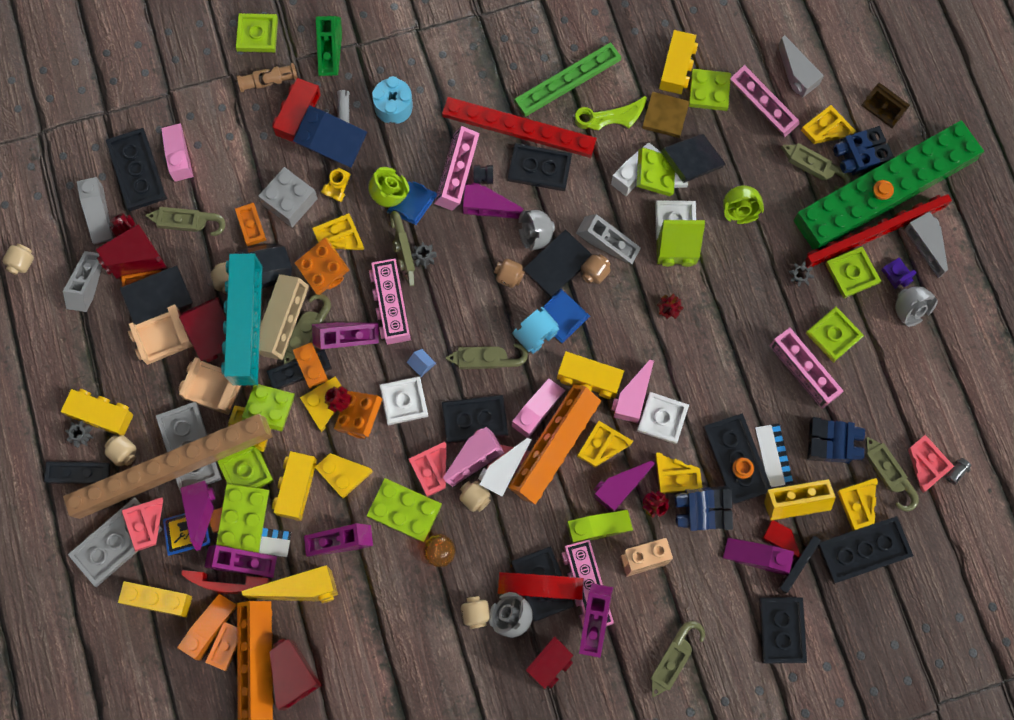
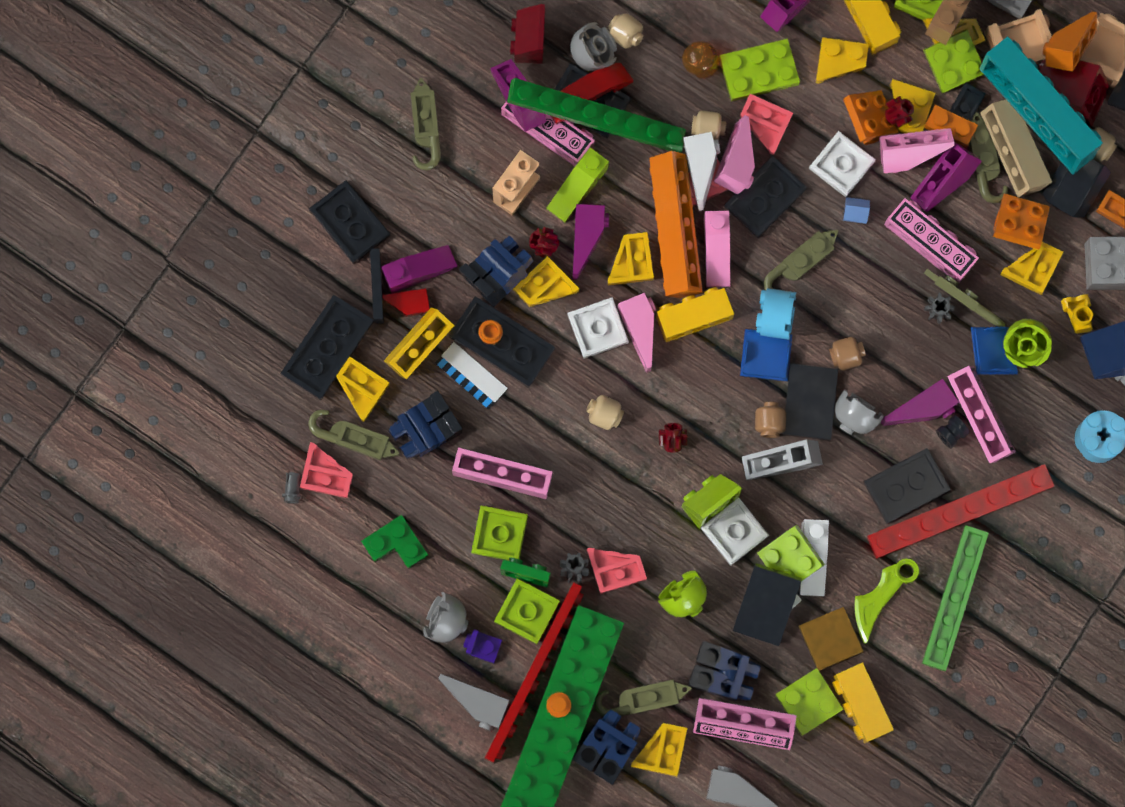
camera: 140 degrees right, 5 degrees up
(185, 350) = (1070, 43): none -> orange slope
(349, 366) = (908, 150): none -> bright pink slope
(555, 559) = (596, 115): none -> green plate
(703, 357) = (605, 412): none -> tan head
(753, 142) = (730, 674): none -> dark blue hips
(773, 255) = (615, 569): none -> coral wing
(839, 291) = (515, 569): none -> green plate
(904, 384) = (395, 536): none -> green plate

